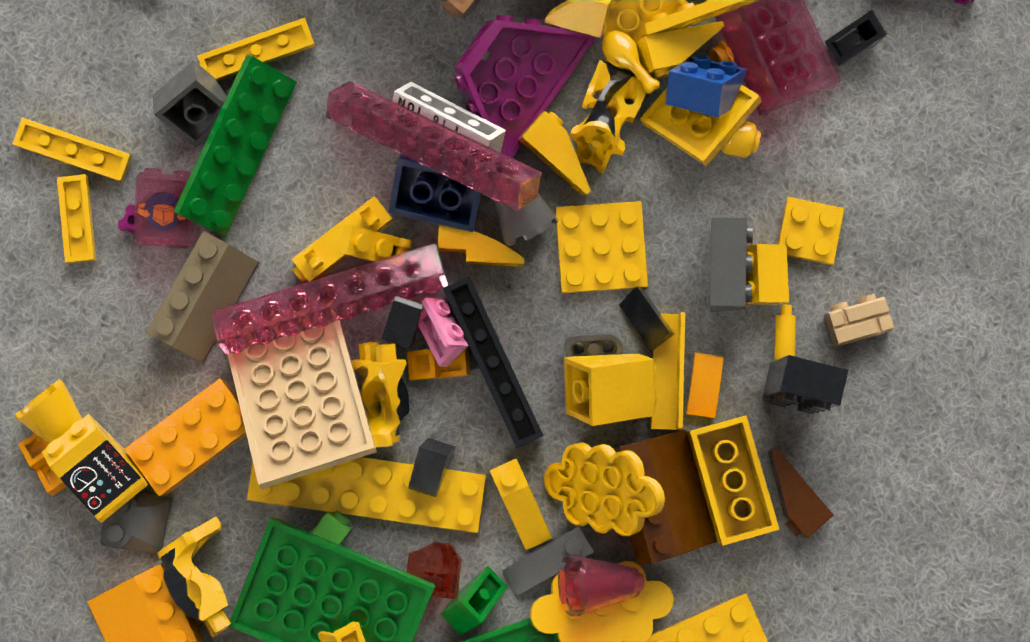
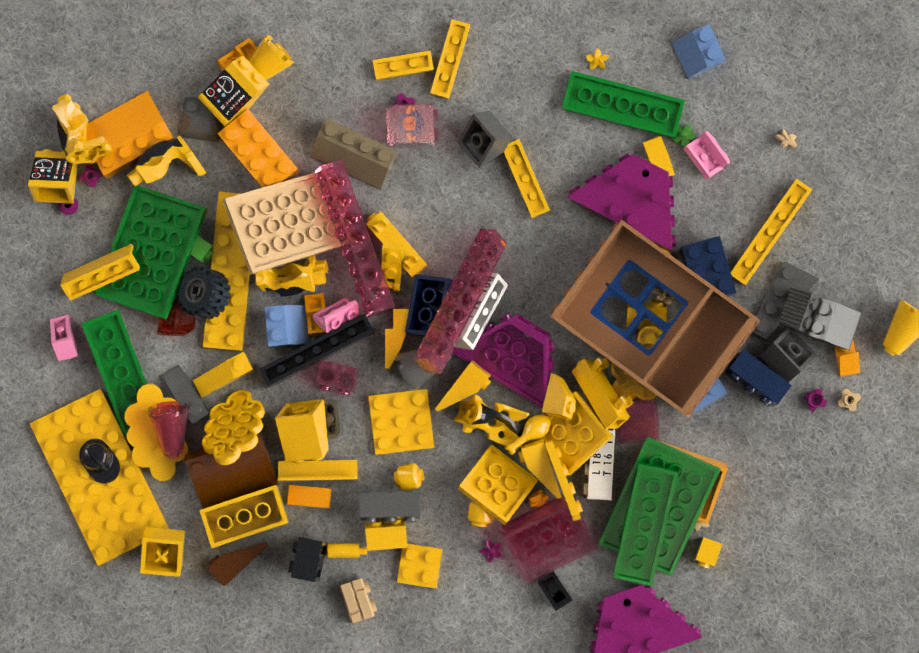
camera: 90 degrees right, 0 degrees up
(235, 146) = (457, 169): green plate -> none
(398, 526) = (203, 292): none -> black wheel
(403, 322) = (339, 288): black slope -> none
(431, 466) = (245, 313): black slope -> none
(452, 407) = (286, 326): none -> medium blue slope
(474, 601) = (157, 347): green slope -> none
(526, 334) = (338, 372): none -> clear pink brick
(646, 318) = (353, 454): black slope -> none
(682, 238) = (408, 477): none -> yellow head
(704, 85) = (512, 485): blue slope -> none
(780, 603) = (162, 551): none -> yellow brick
(791, 128) = (491, 550): none -> magenta plant

